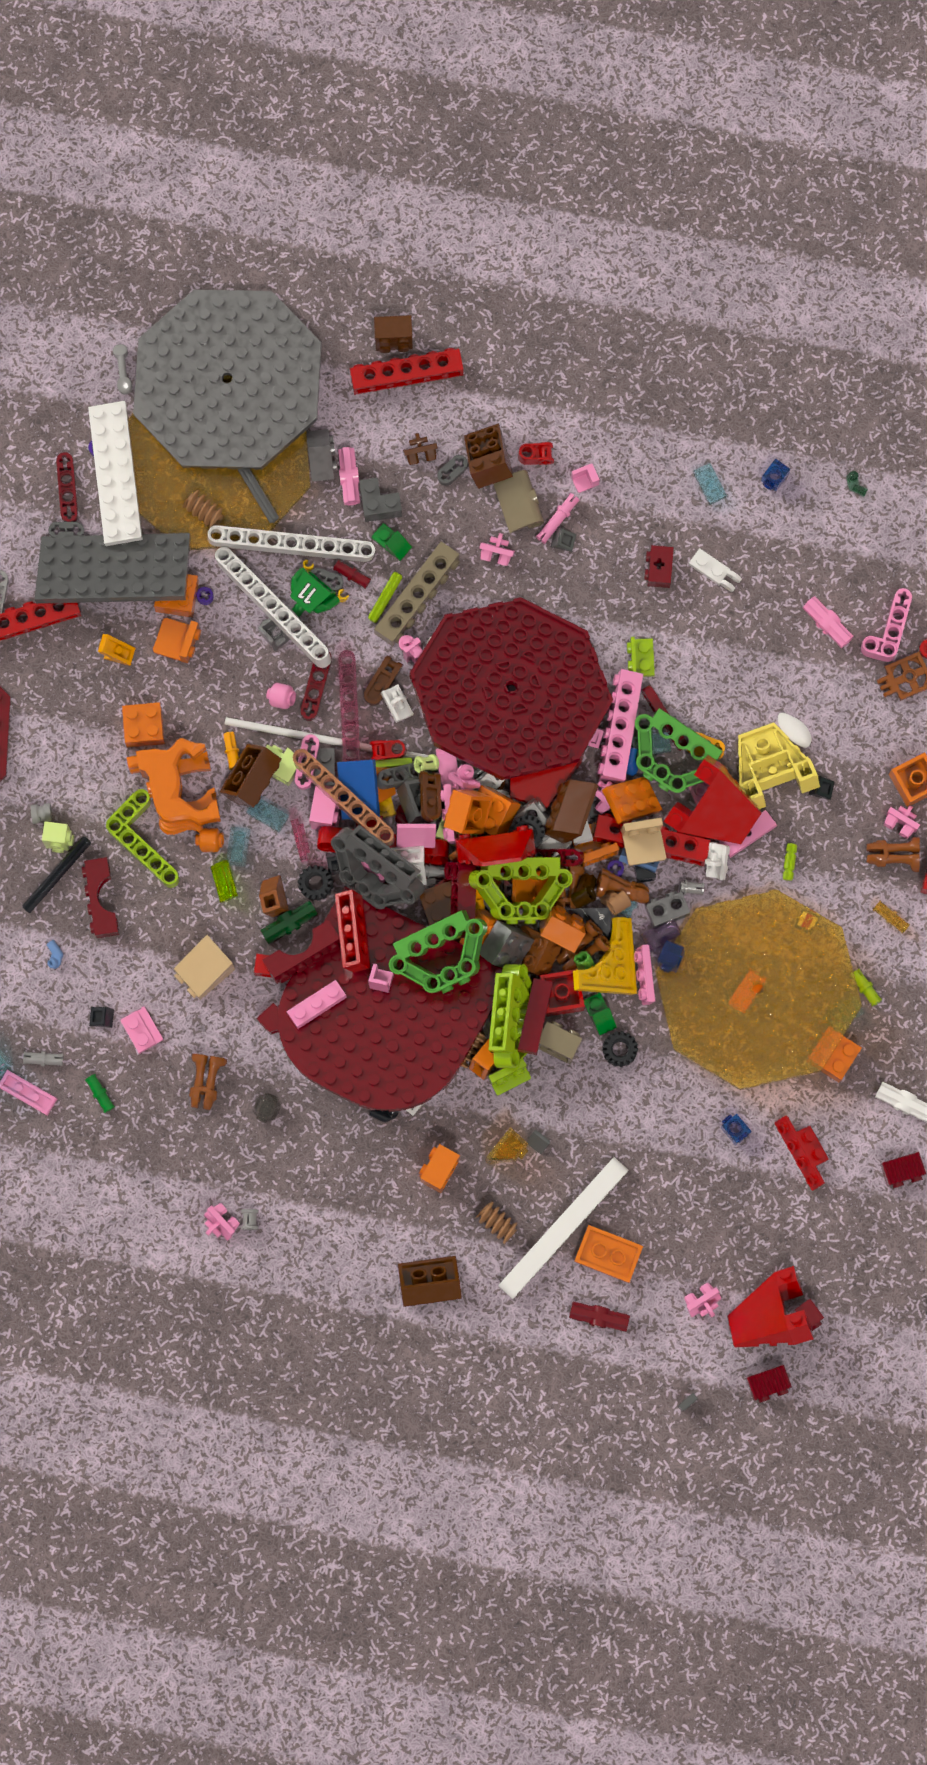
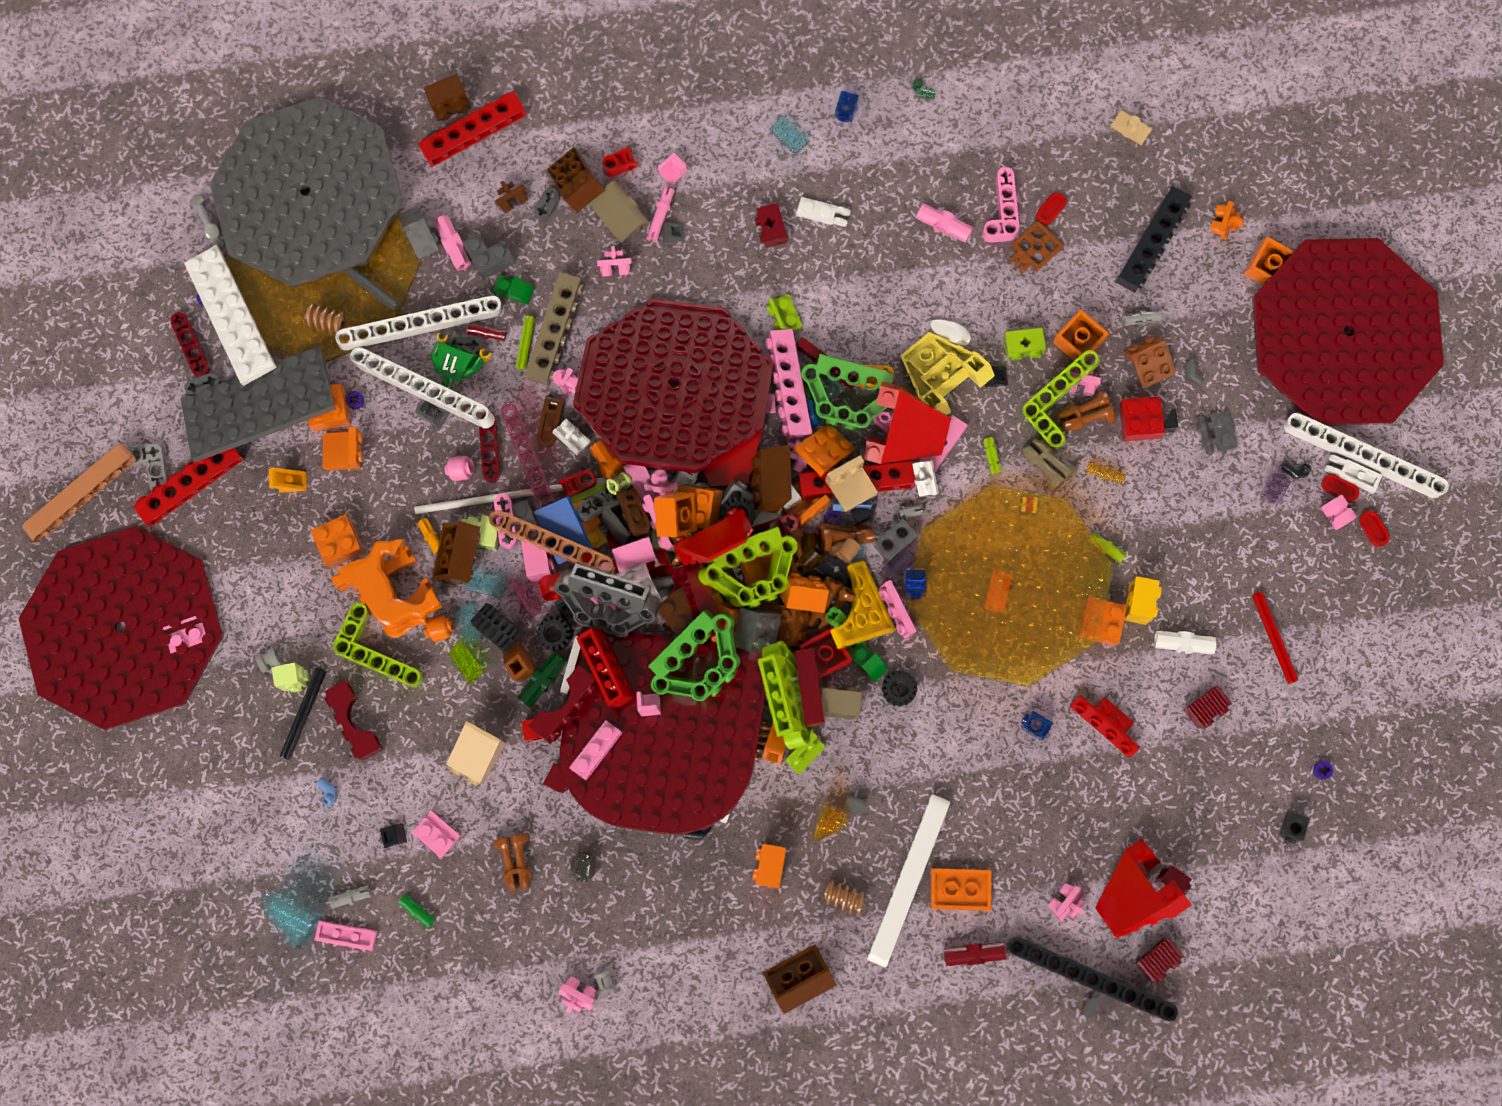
camera: 15 degrees left, 0 degrees up
(264, 858) = (496, 627): none -> black tyre
(320, 919) = (570, 666): none -> white tile
(422, 741) = (608, 464): none -> orange piece
(708, 1379) = (1101, 979): none -> black beam
(841, 873) = (1044, 451): none -> dark tan piece
(870, 763) = (1032, 337): none -> lime brick
(870, 826) = (1056, 395): none -> lime beam
(877, 1048) = (1142, 600): none -> yellow brick

